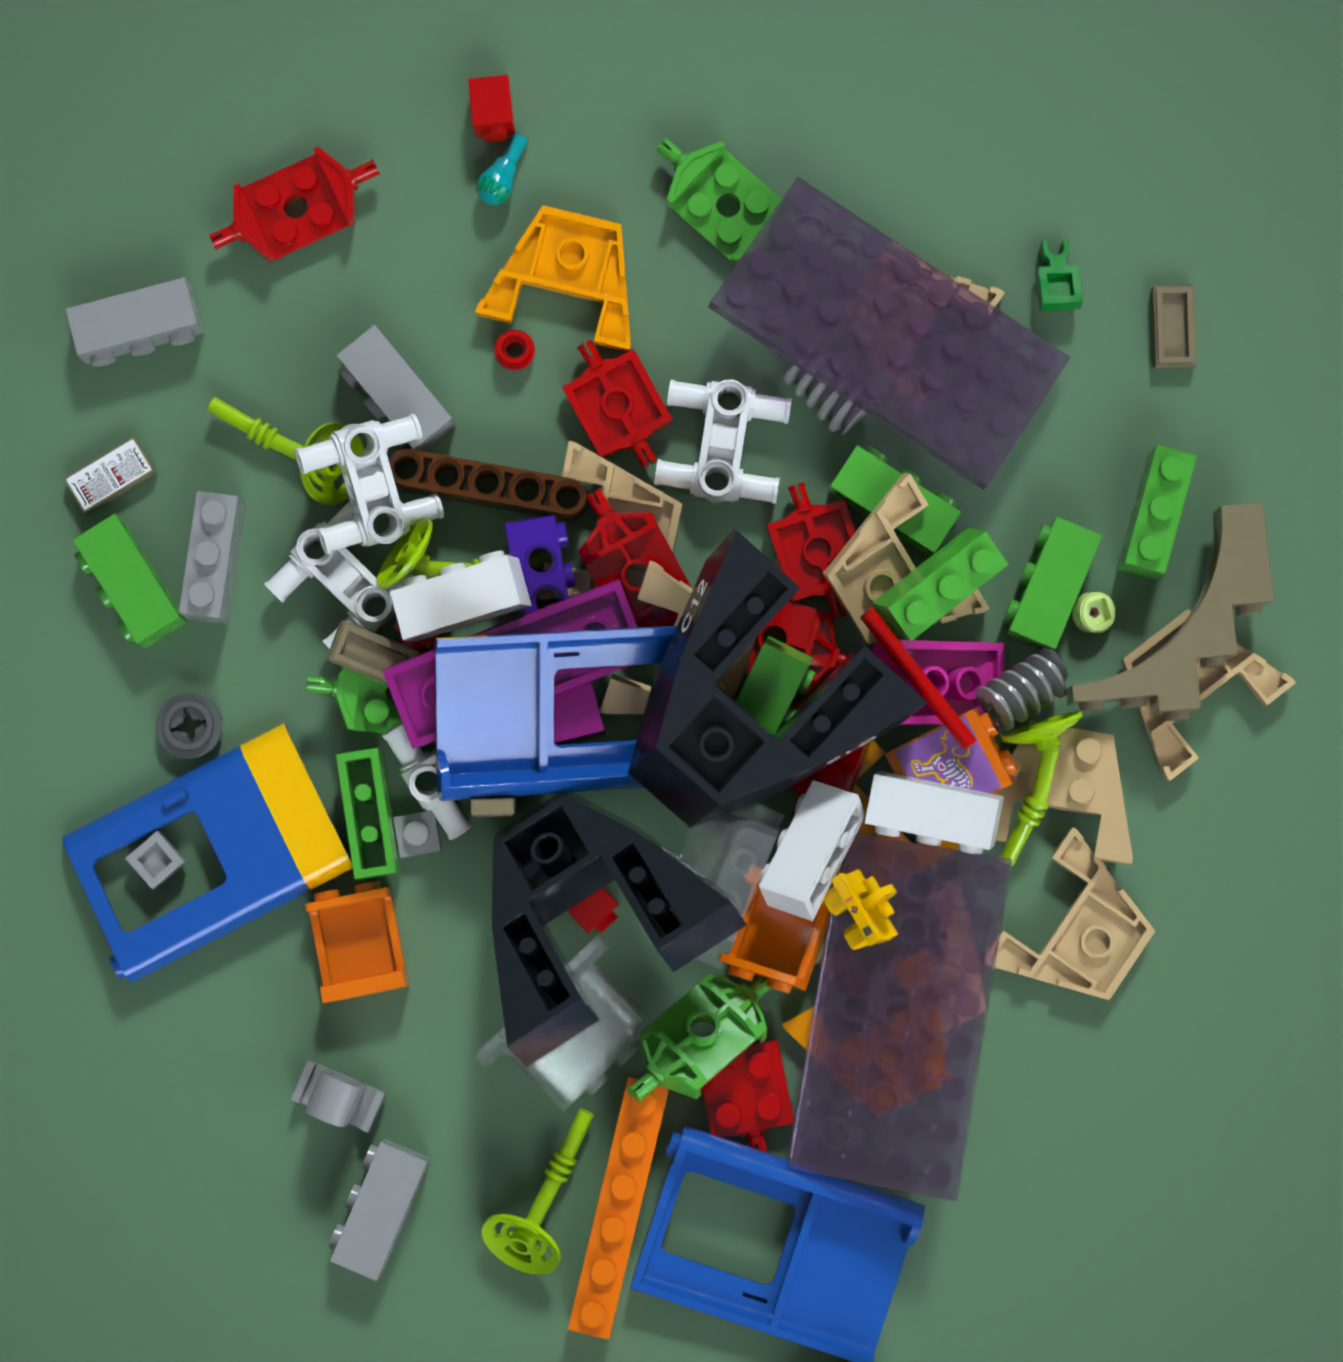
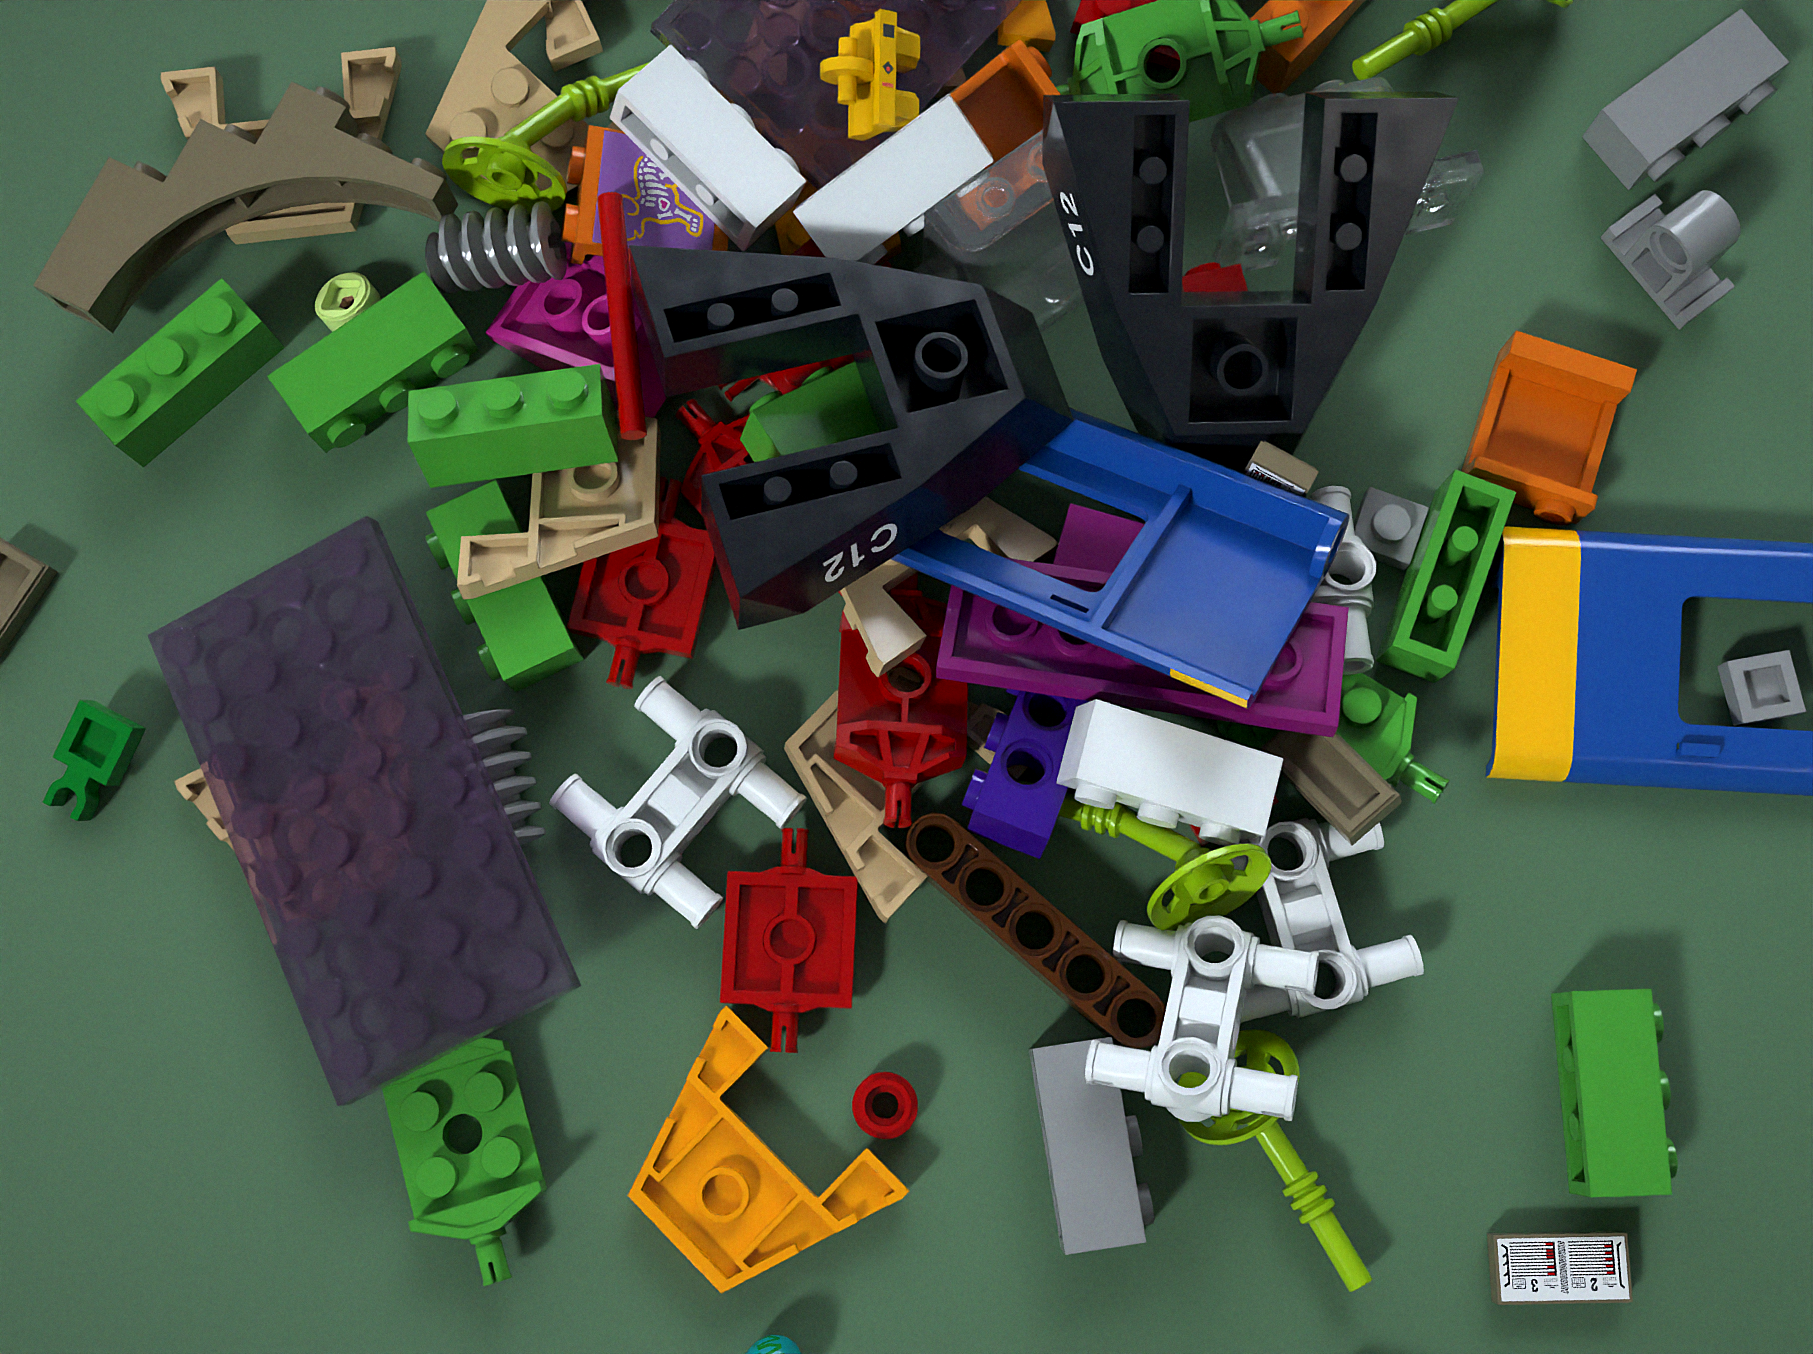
camera: 150 degrees left, 5 degrees down
(173, 716) = (1646, 827): dark grey gear -> none
(212, 557) = (1477, 1054): light grey brick -> none

